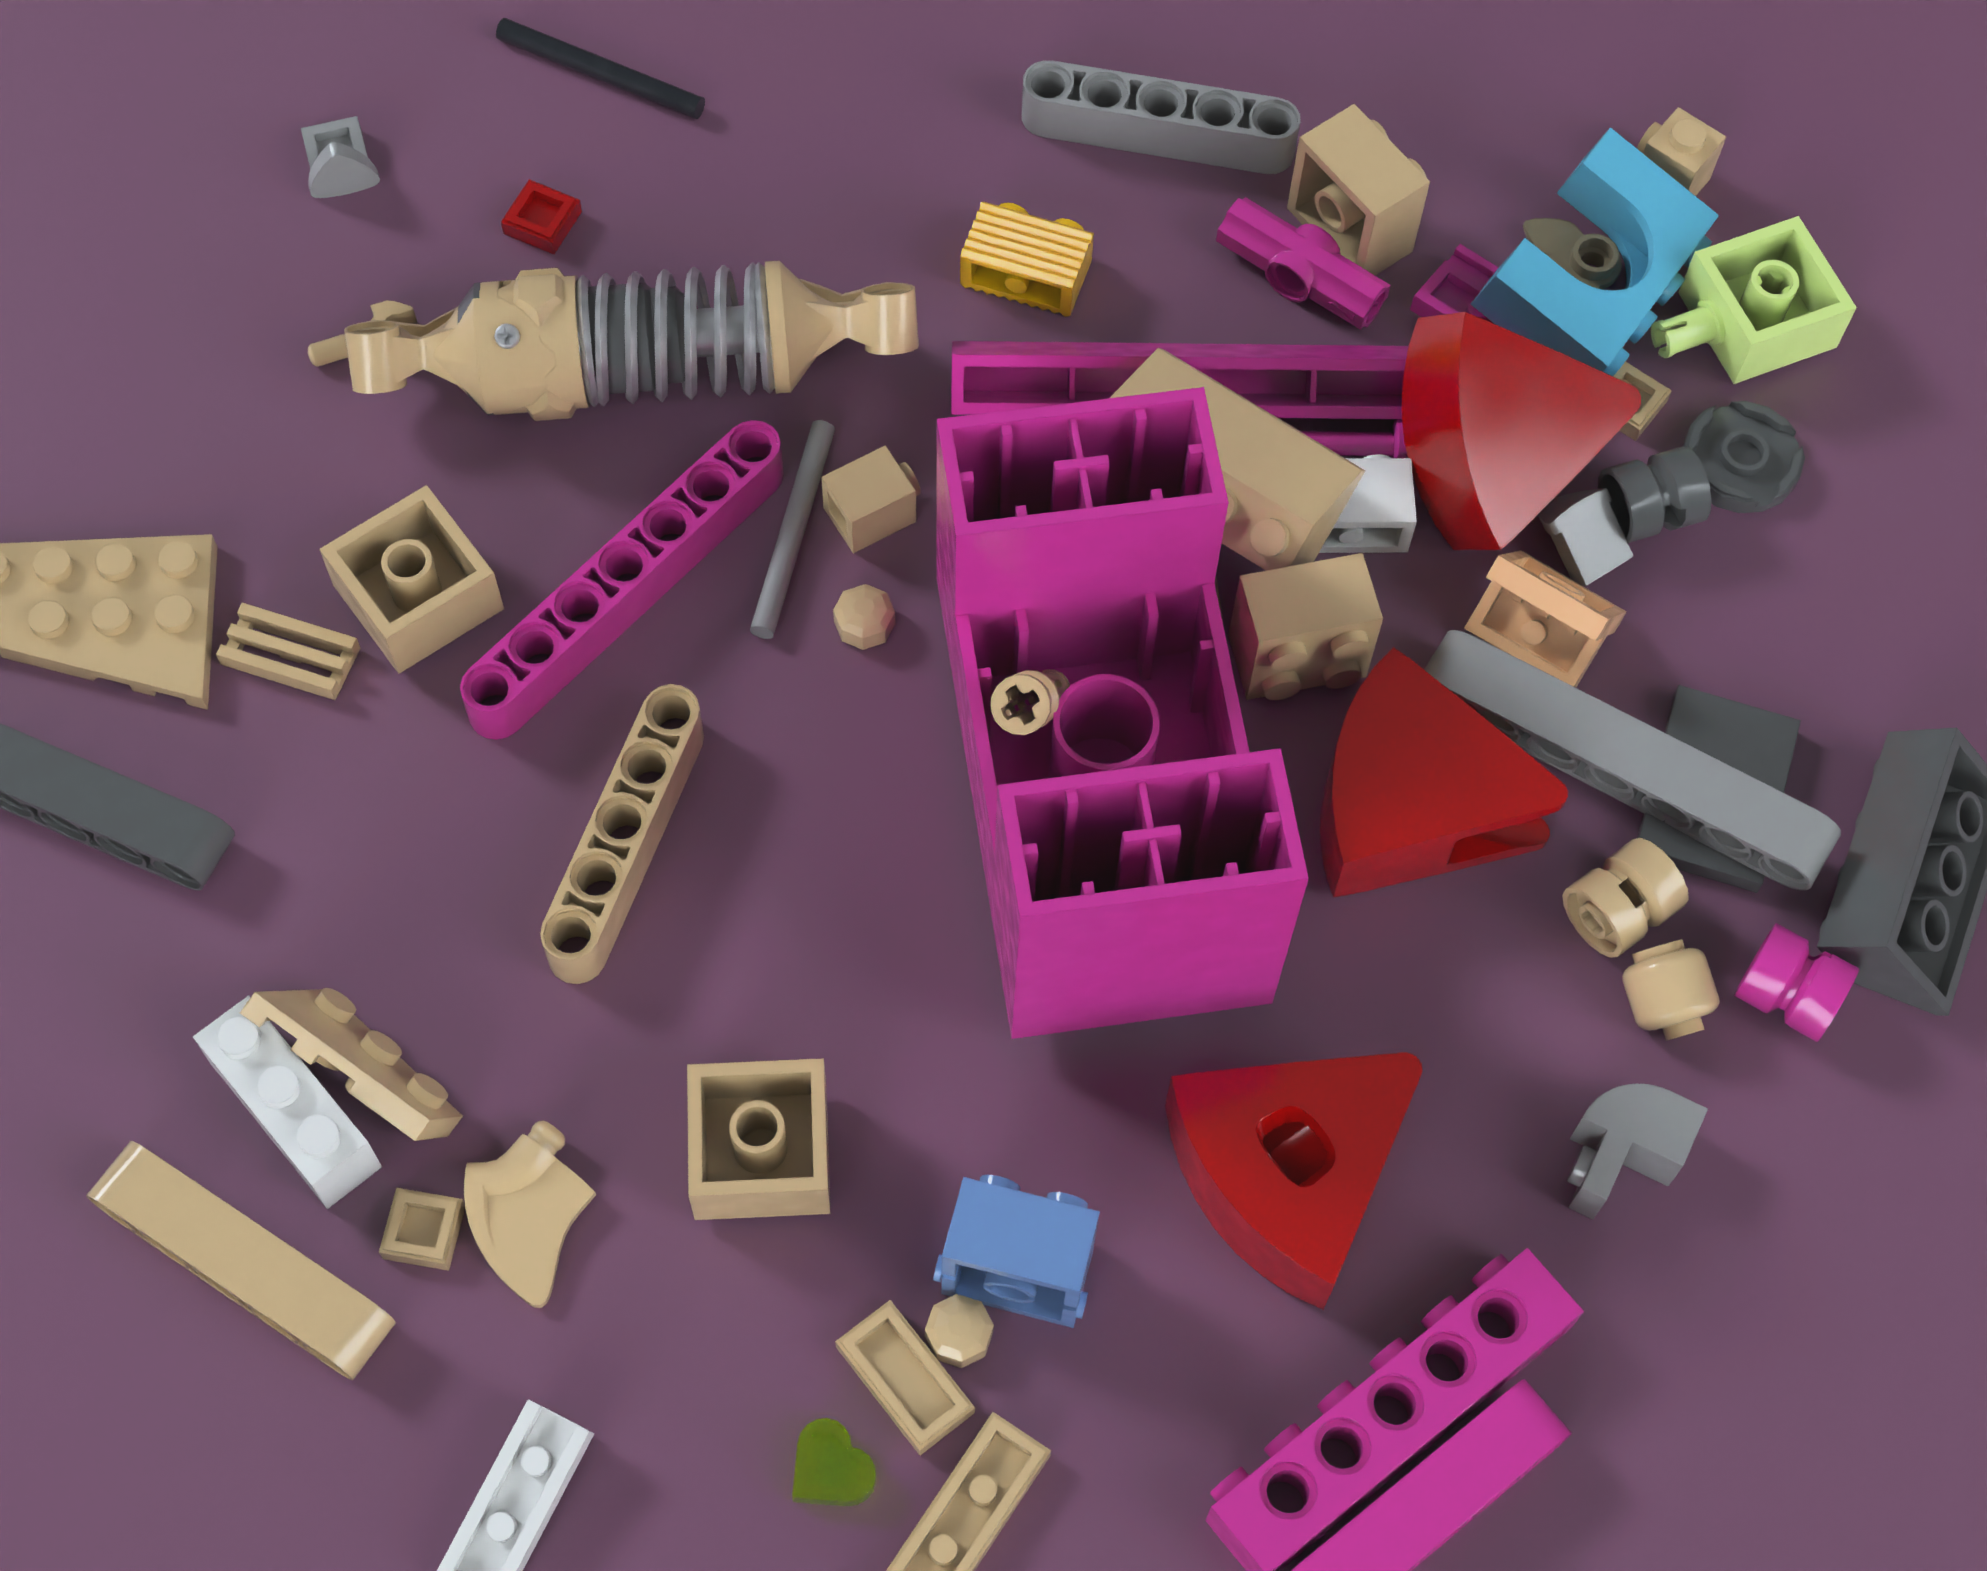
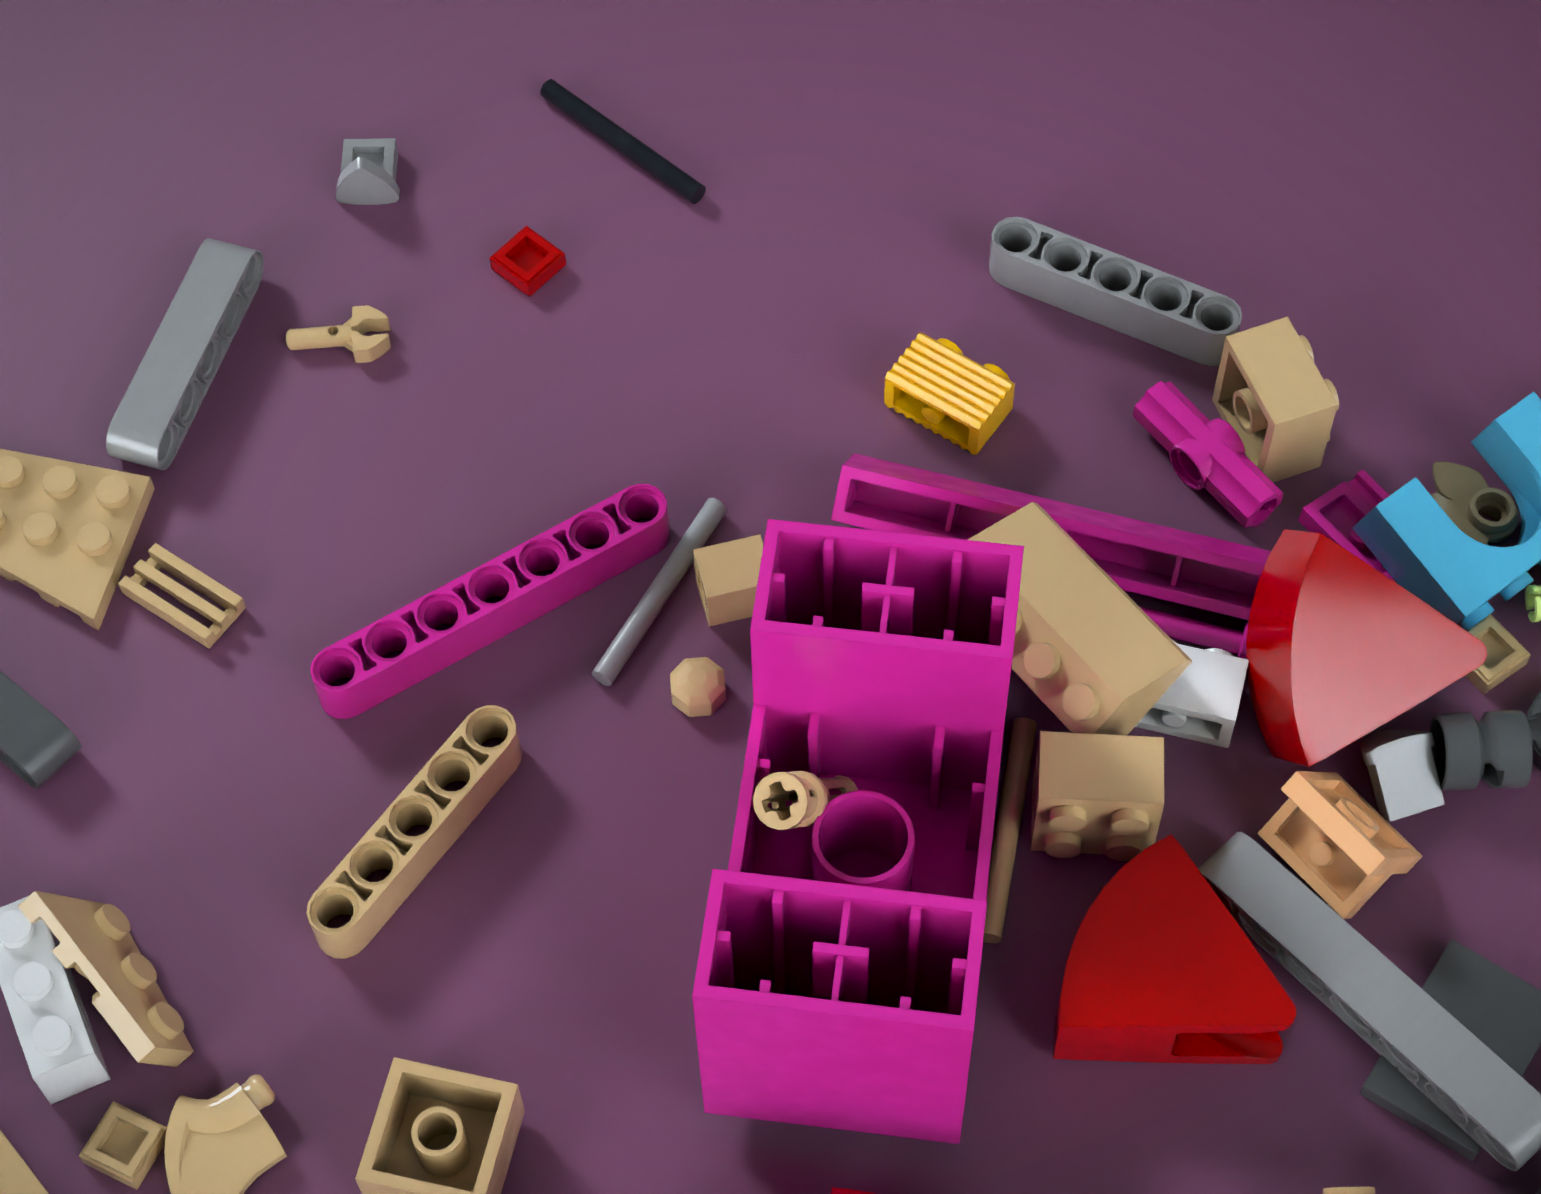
camera: 20 degrees right, 5 degrees down
(206, 395) = (185, 354): none -> light grey beam
(412, 578) = (304, 556): tan brick -> none
(565, 344) = (505, 379): tan piece -> none
(1625, 897) = (1339, 1129): tan wheel -> none

